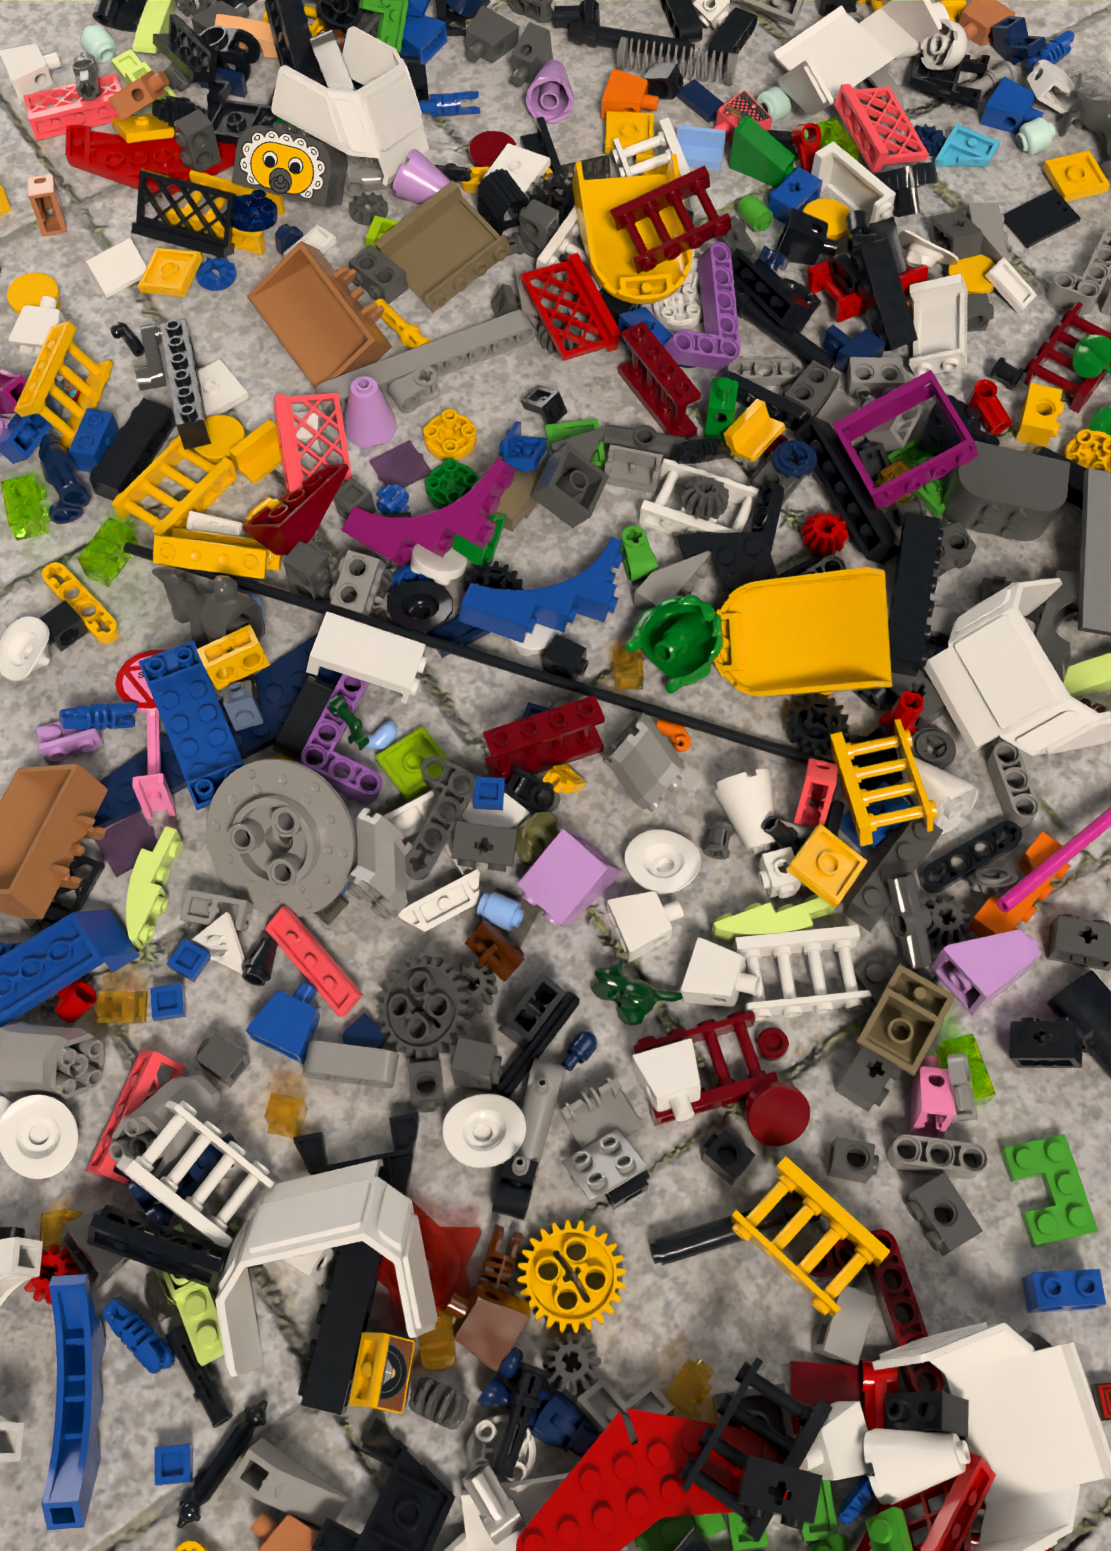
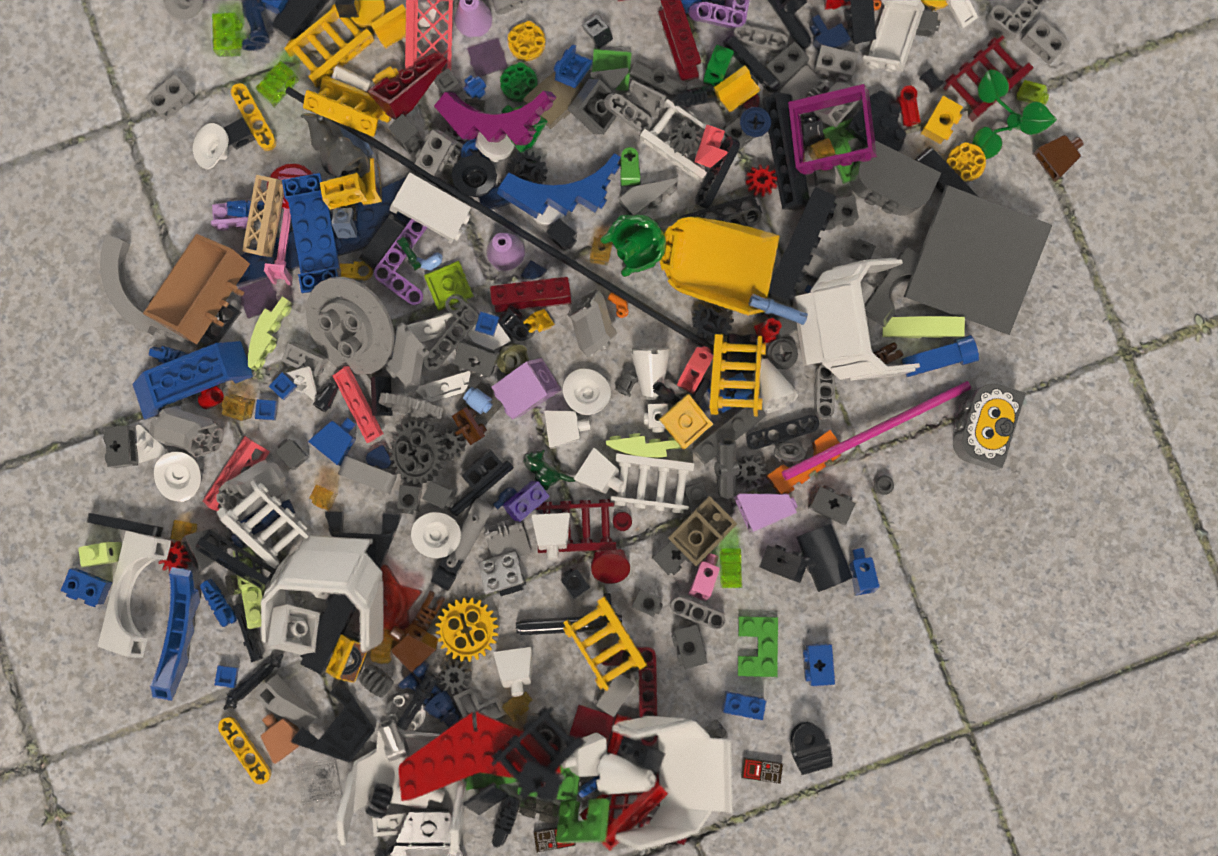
camera: 15 degrees right, 20 degrees up
(128, 722) = (269, 222): none -> tan fence
(274, 650) = (372, 184): none -> yellow panel
(279, 1341) = (293, 629): none -> white brick
(348, 940) = (378, 386): none -> black plate
(380, 934) = (405, 404): none -> light grey gear
(487, 695) = (505, 251): none -> lavender cone
(604, 484) = (620, 112): none -> light grey beam
(614, 1042) = (525, 501): none -> brick
(668, 1321) = (515, 668): none -> white torso
(738, 557) = (696, 193): black wing -> none
(744, 500) = (709, 151): none -> coral slope
(920, 677) = (770, 306): none -> medium blue pin
(962, 1087) = (721, 580): light grey piece -> none

